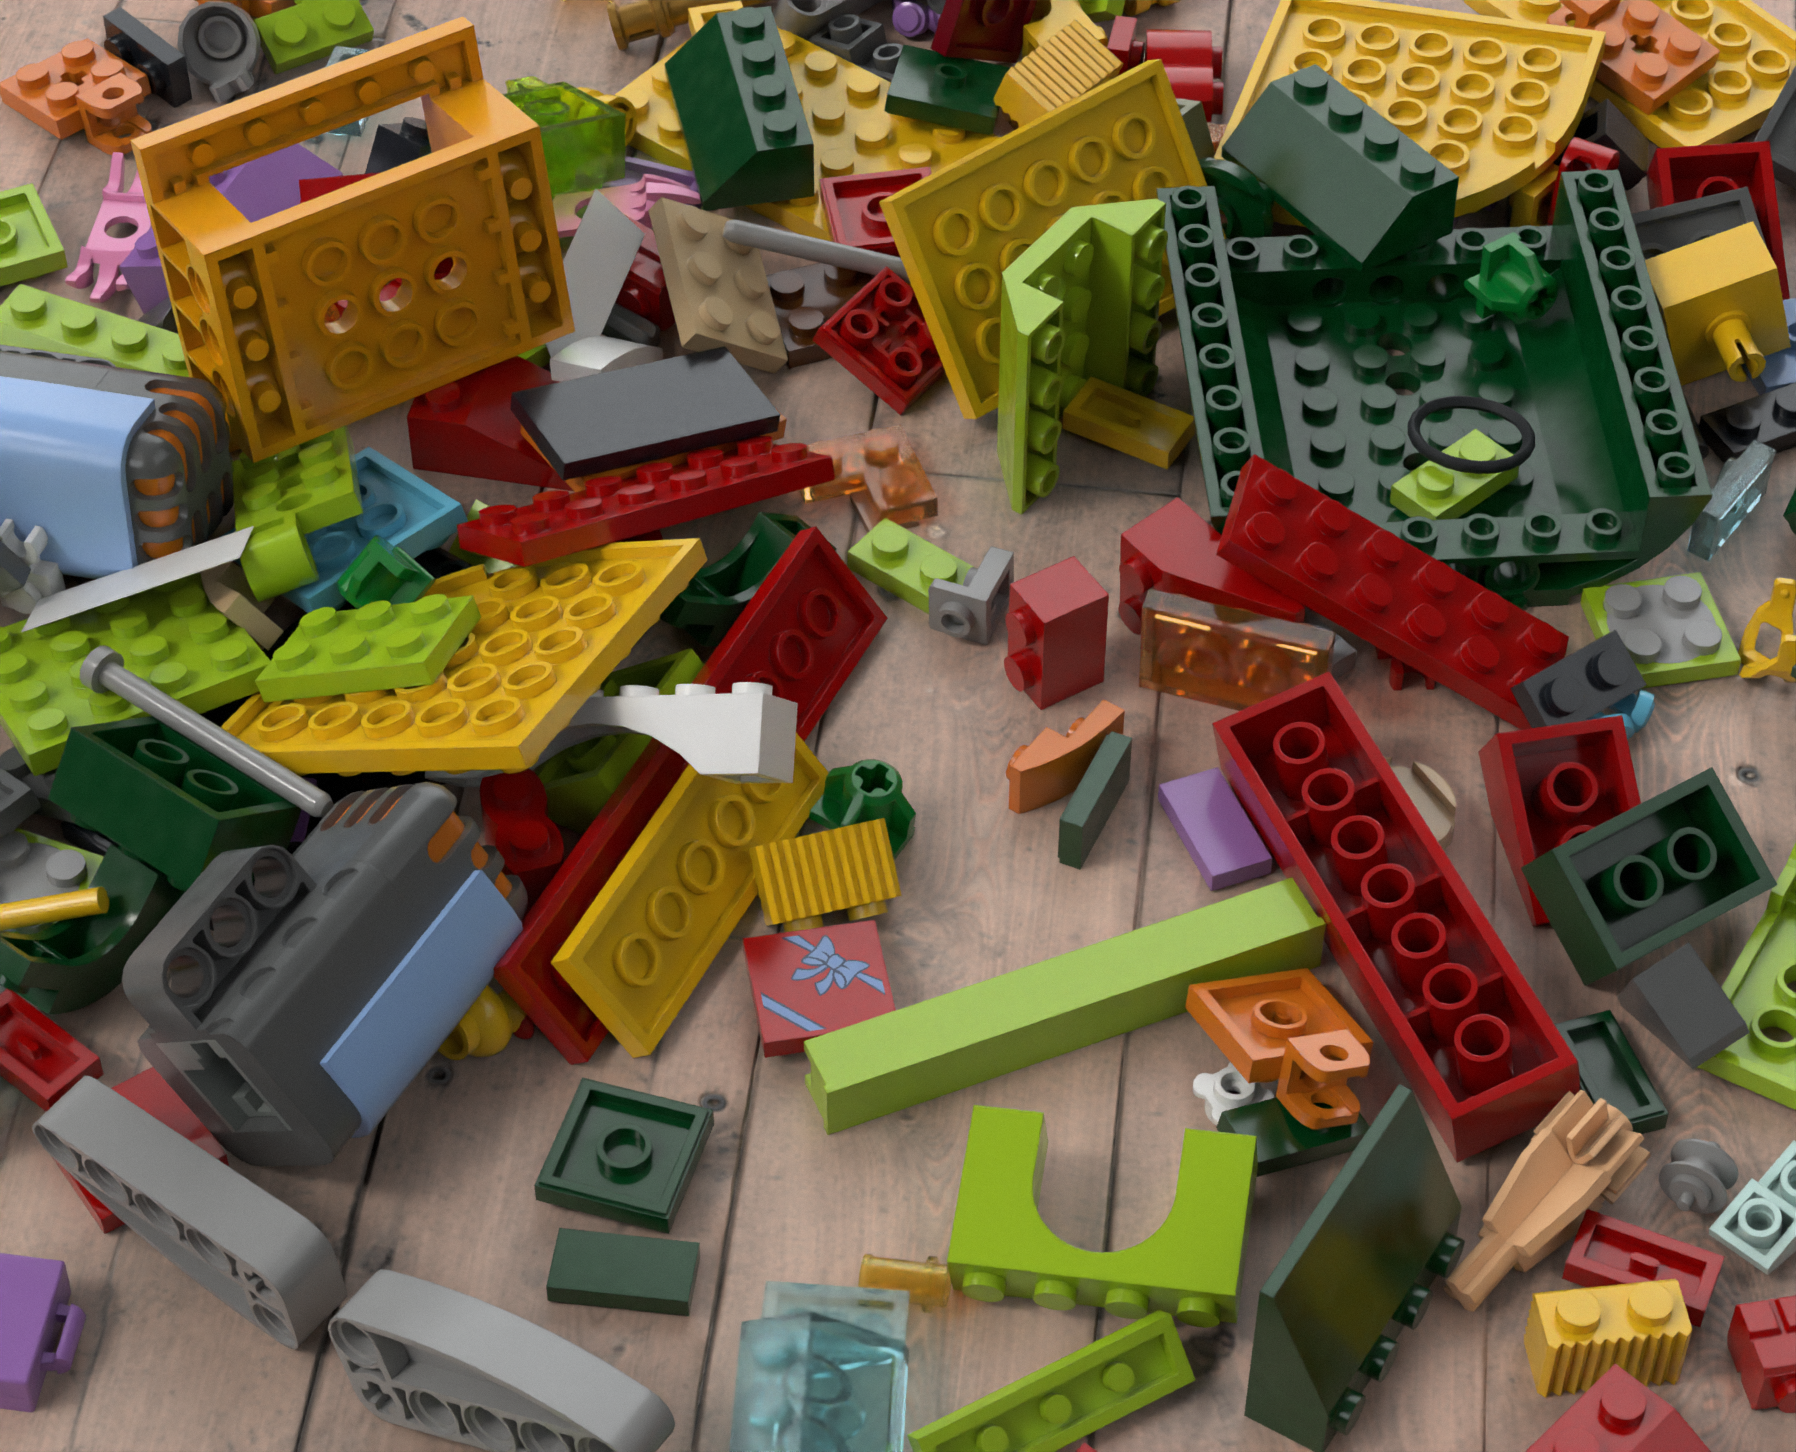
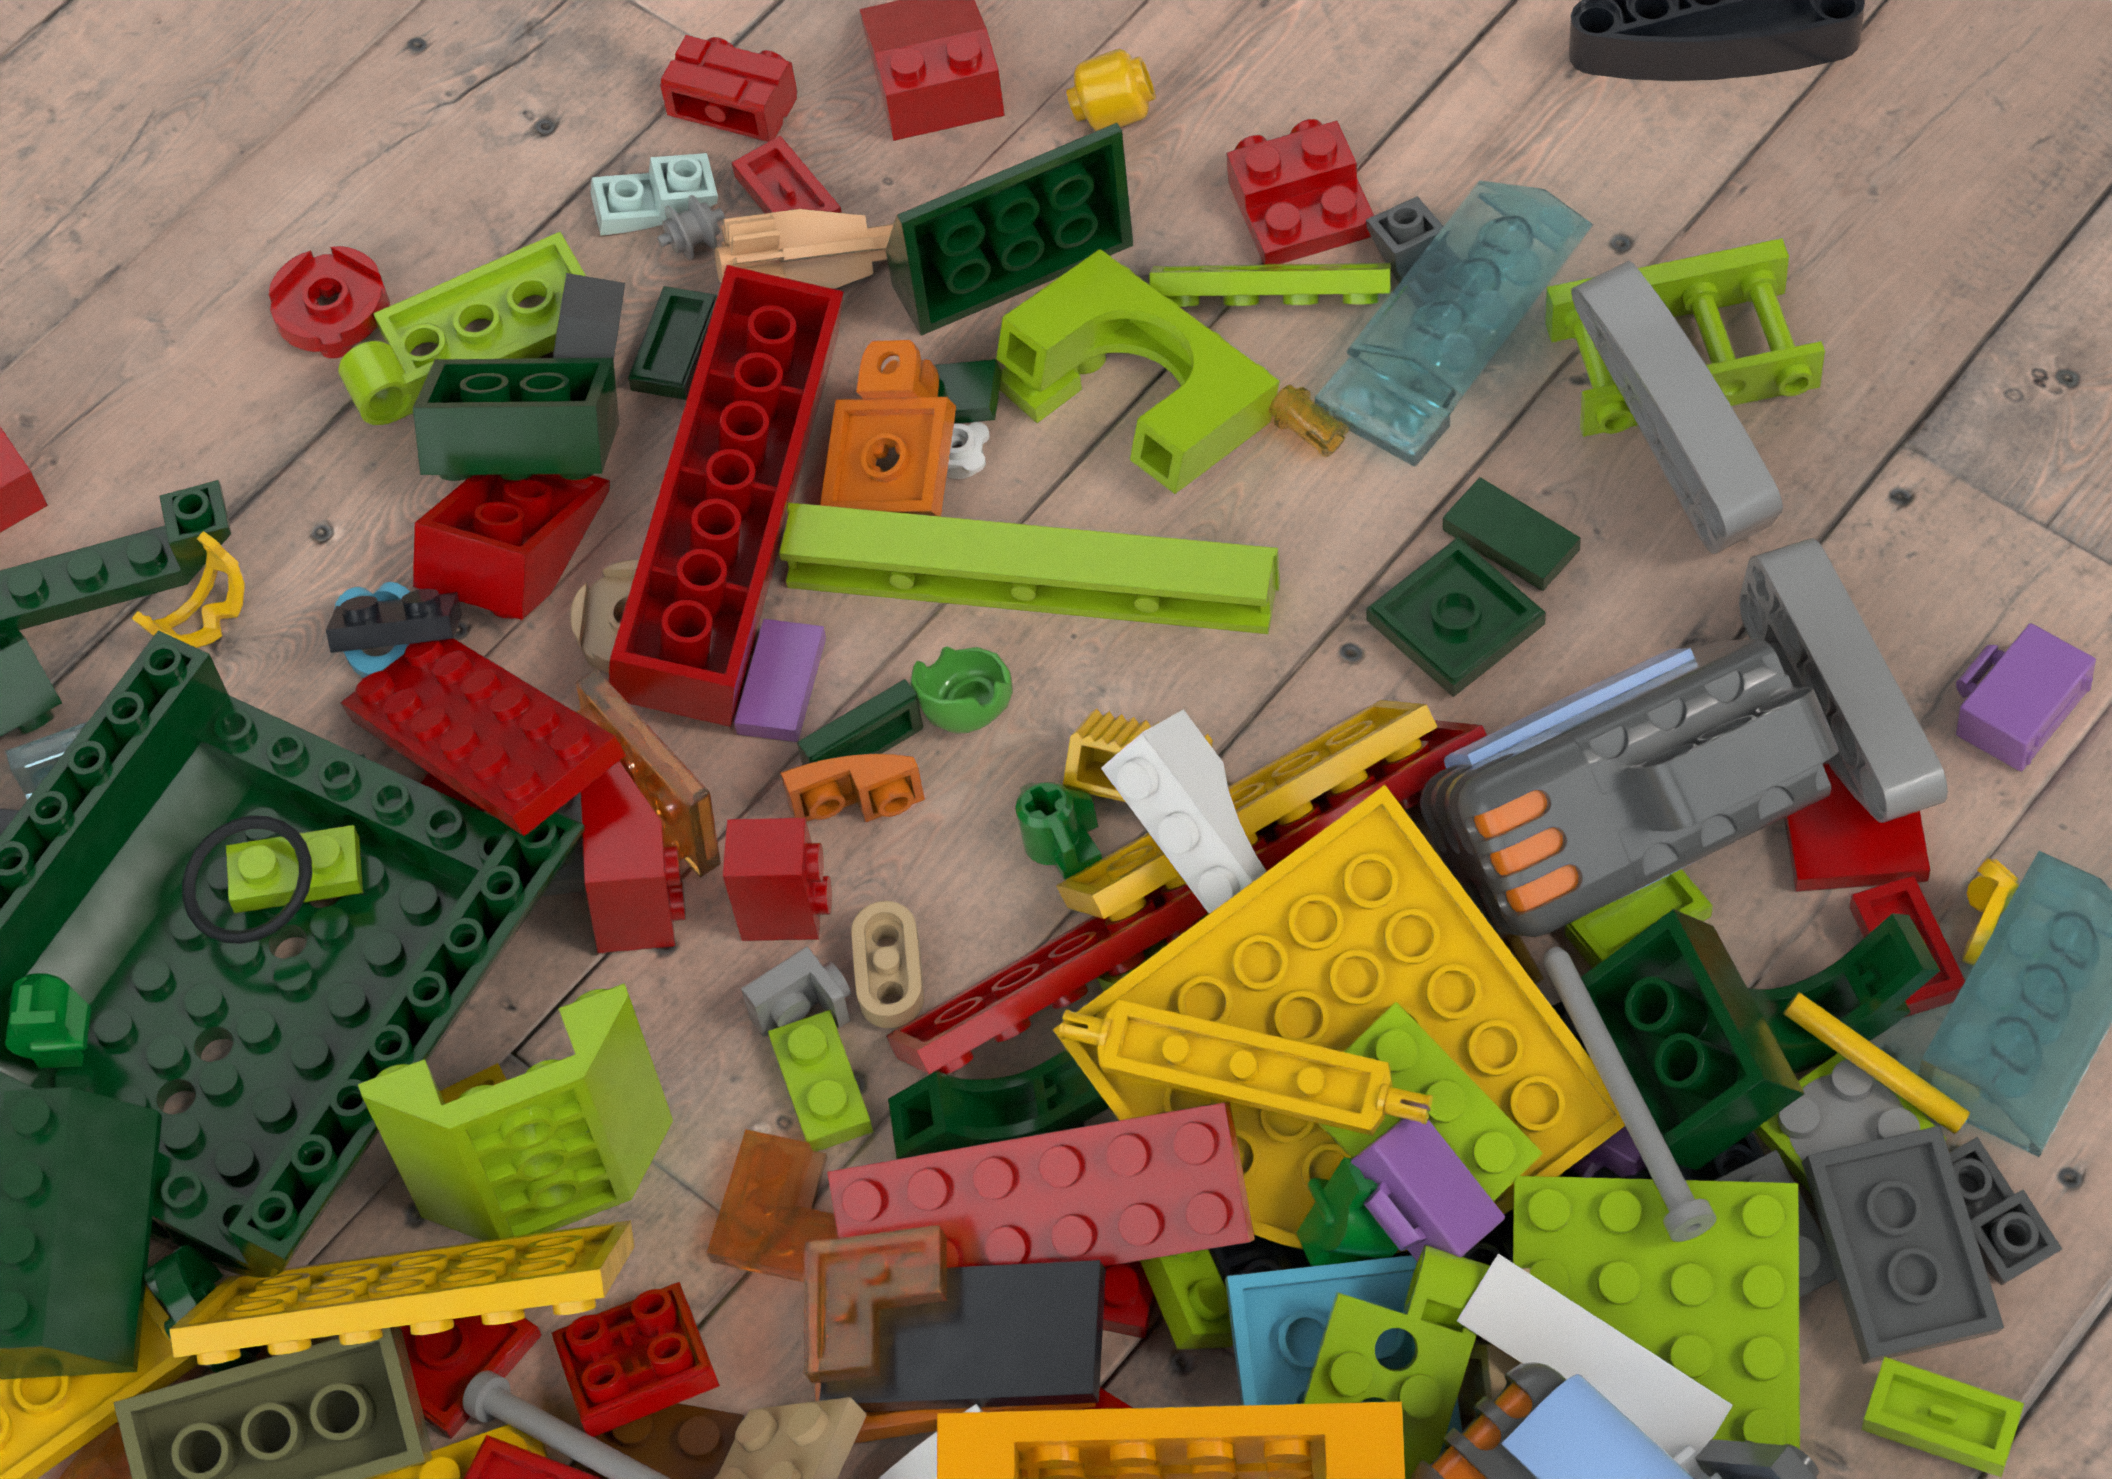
camera: 140 degrees left, 10 degrees up
(332, 595) = (1425, 1191): none -> medium lavender piece
(517, 562) = (1245, 1067): none -> yellow plate
(737, 387) = (850, 1283): none -> clear orange plate
(815, 983) = (1213, 673): tile -> none
(932, 662) = (887, 968): none -> tan plate
(1037, 866) = (963, 689): none -> bright green hair
(1585, 1331) = (859, 148): yellow brick -> none
(1666, 627) = (272, 664): light grey piece -> none

